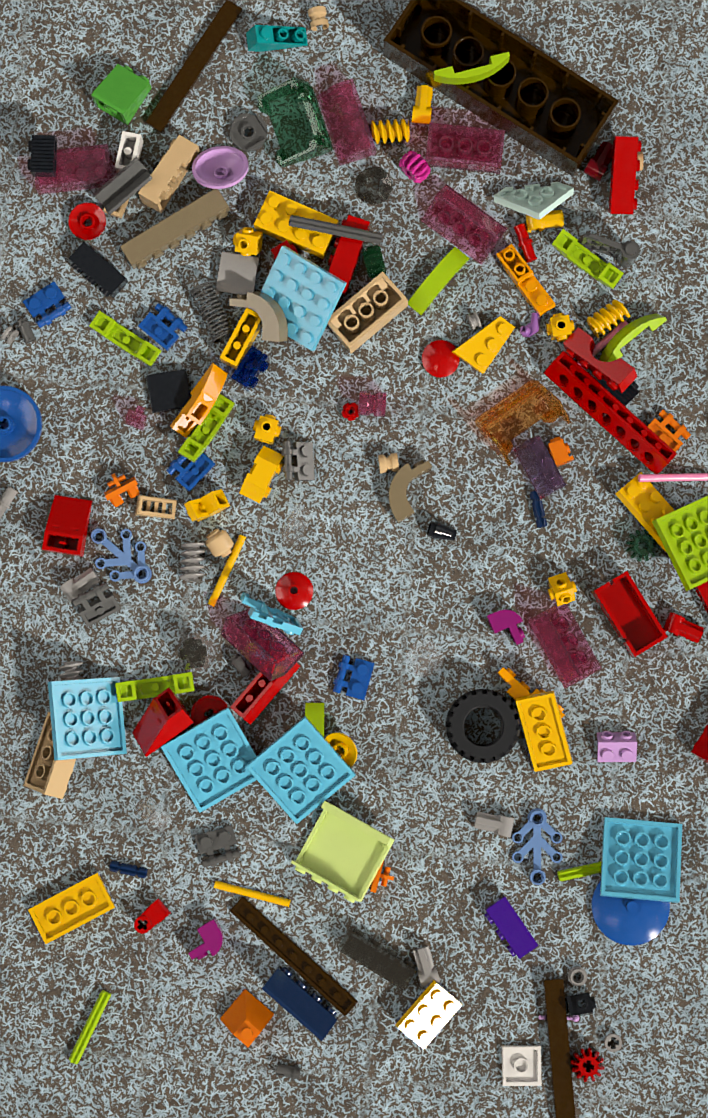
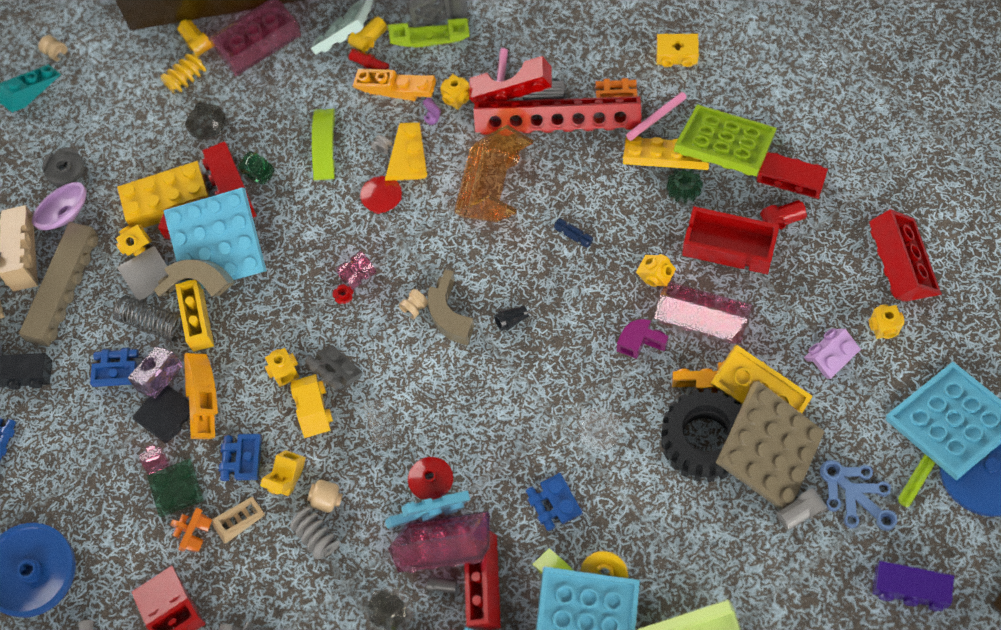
camera: 40 degrees left, 20 degrees down
(123, 558) = (245, 590): medium blue plant -> none
(125, 339) = (88, 406): lime slope -> none
(134, 449) = (175, 488): none -> clear green plate
(194, 359) = (155, 372): none -> clear purple brick
(204, 433) = (228, 416): lime slope -> none
(226, 571) = (353, 516): yellow bar -> none
(250, 368) = (222, 331): clear blue brick -> none
(295, 121) = (95, 127): clear green windscreen -> none
(335, 229) = (199, 166): dark grey axle -> none
(346, 122) = (142, 95): clear pink slope -> none
(367, 312) = (286, 207): tan slope -> none
(414, 166) = (227, 79): dark pink gear -> none
(463, 224) = (306, 88): clear pink slope -> none
(511, 771) = (770, 446): none -> dark tan plate
(539, 467) = (542, 198): clear purple brick -> none
(559, 451) = (547, 176): orange brick -> none
(606, 317) = (486, 54): yellow piece -> none
(627, 333) = (513, 49): lime slope -> none
(662, 757) = (886, 321): none -> yellow brick

